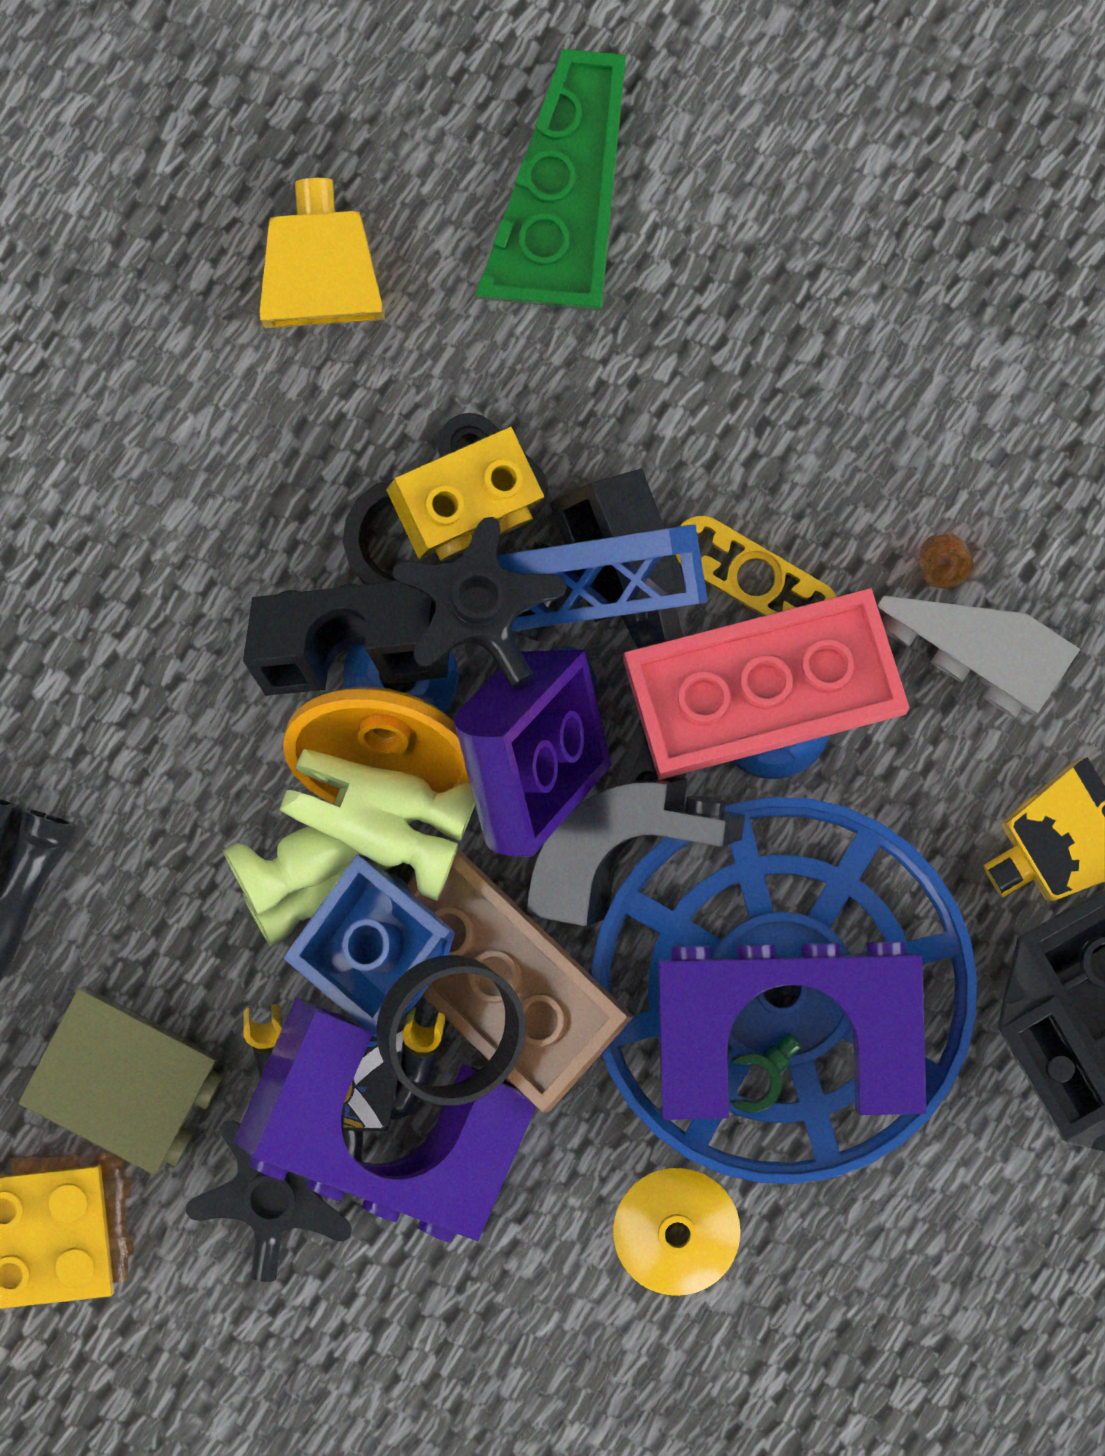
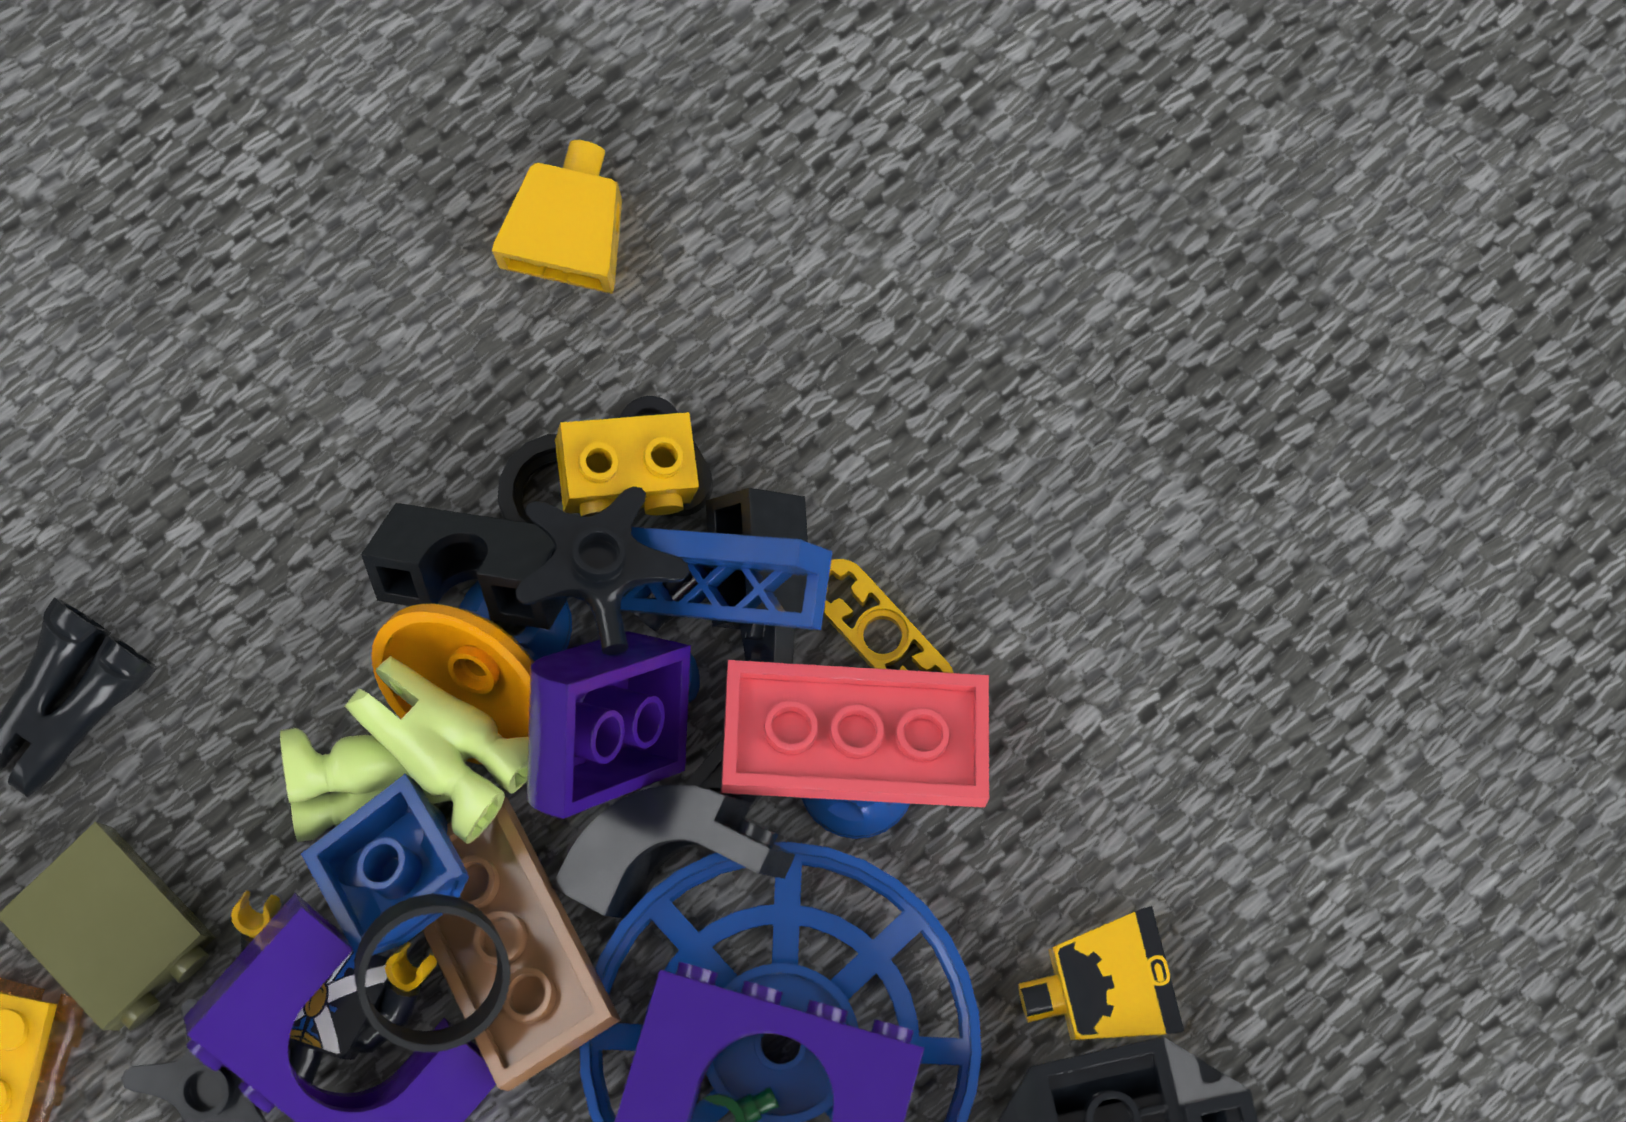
camera: 20 degrees right, 10 degrees down
(561, 203) = (808, 239): green wing -> none
(959, 557) = (1085, 675): clear orange hinge -> none
(1008, 649) = (1106, 777): light grey slope -> none

